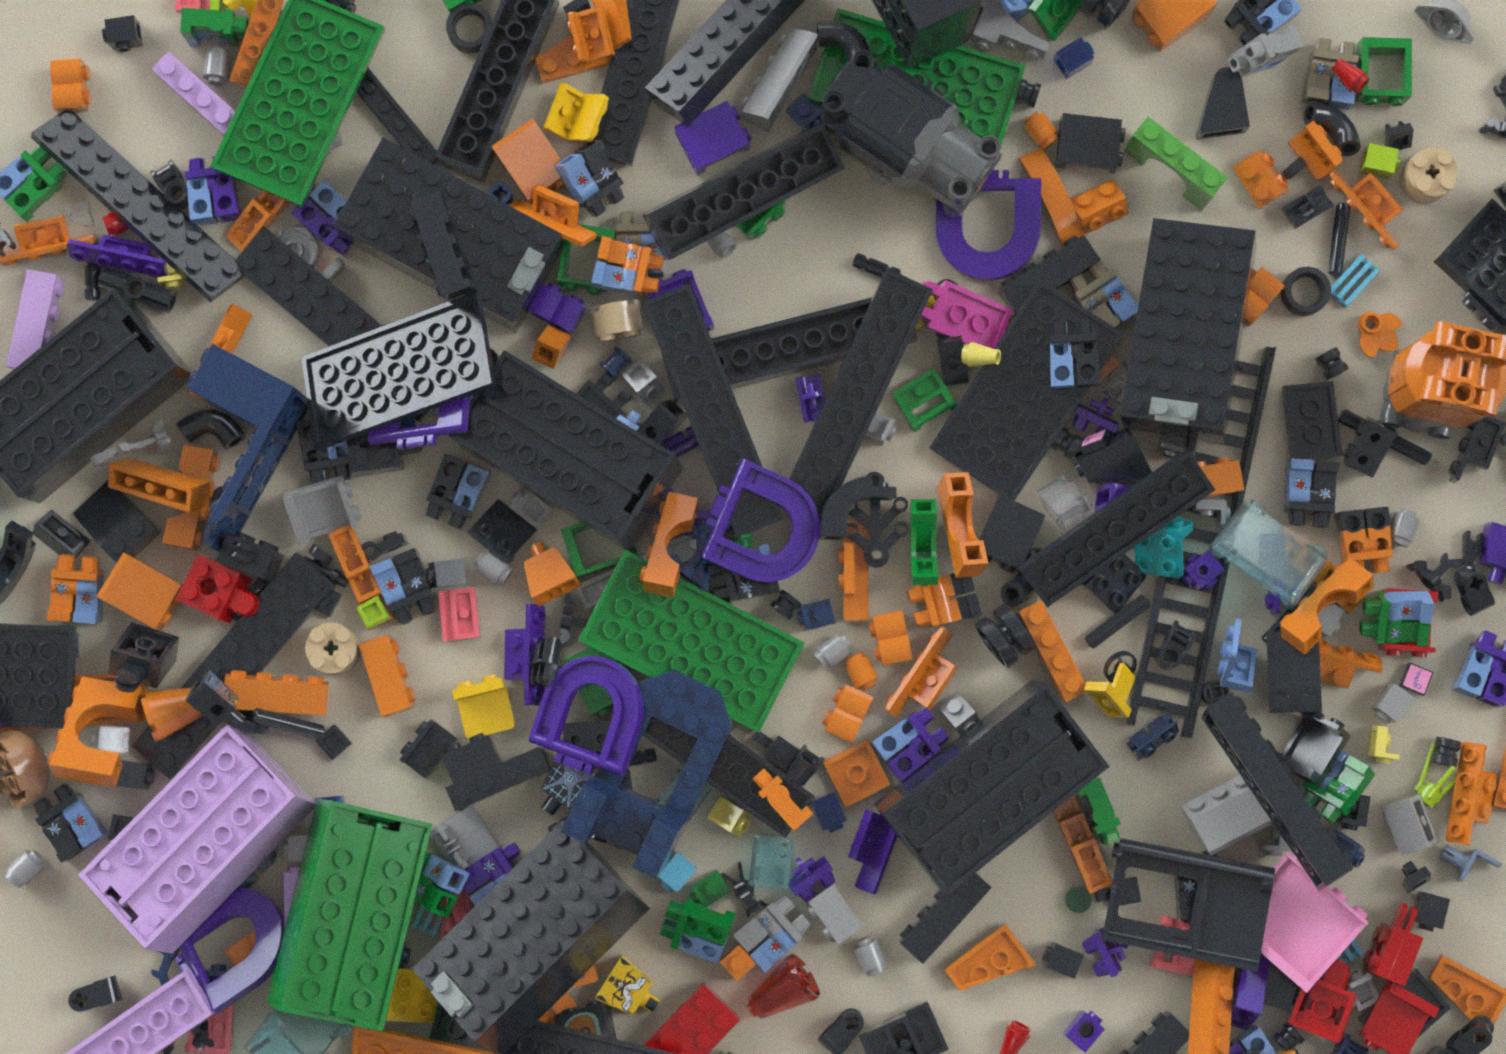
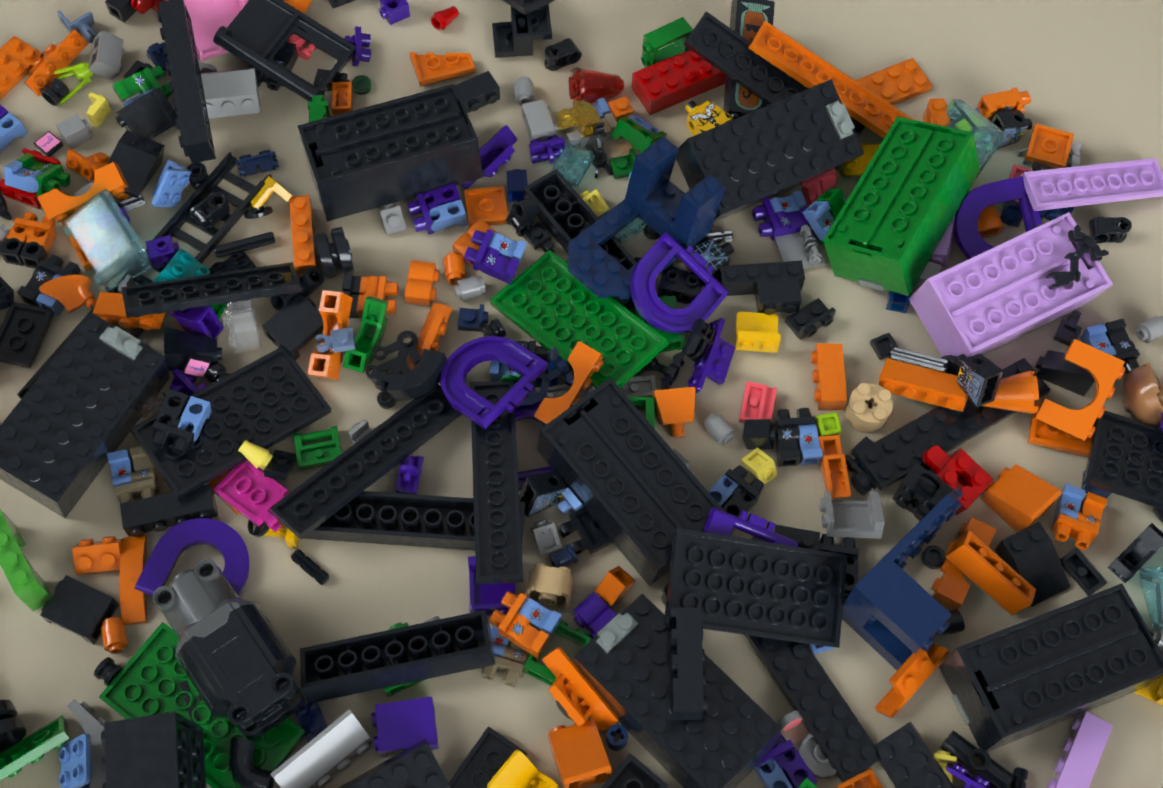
camera: 165 degrees left, 20 degrees down
(110, 738) = (1068, 397): clear bracket -> none
(136, 854) = (1086, 245): none -> black piece
(142, 657) = (1031, 440): black brick -> none
(158, 437) = (1031, 605): light grey piece -> none
(391, 542) = (800, 473): black plate -> none
(437, 539) = (760, 465): none -> light yellow bracket
(502, 531) = (705, 454): black hinge -> none
(591, 177) = (528, 720): hips -> none
(776, 926) = (581, 115): none -> clear yellow brick
(780, 799) = (545, 172): orange hips -> none
(822, 695) = (496, 255): none -> dark purple hips
(926, 678) = (404, 247): orange bracket -> none
(946, 518) = (340, 340): none -> sand blue plate
(1062, 959) = (389, 50): black brick -> none
(1074, 57) = (52, 690): clear blue brick -> none
(1279, 483) = (70, 291): none -> orange arm
(1414, 877) = (122, 27): black tile -> none

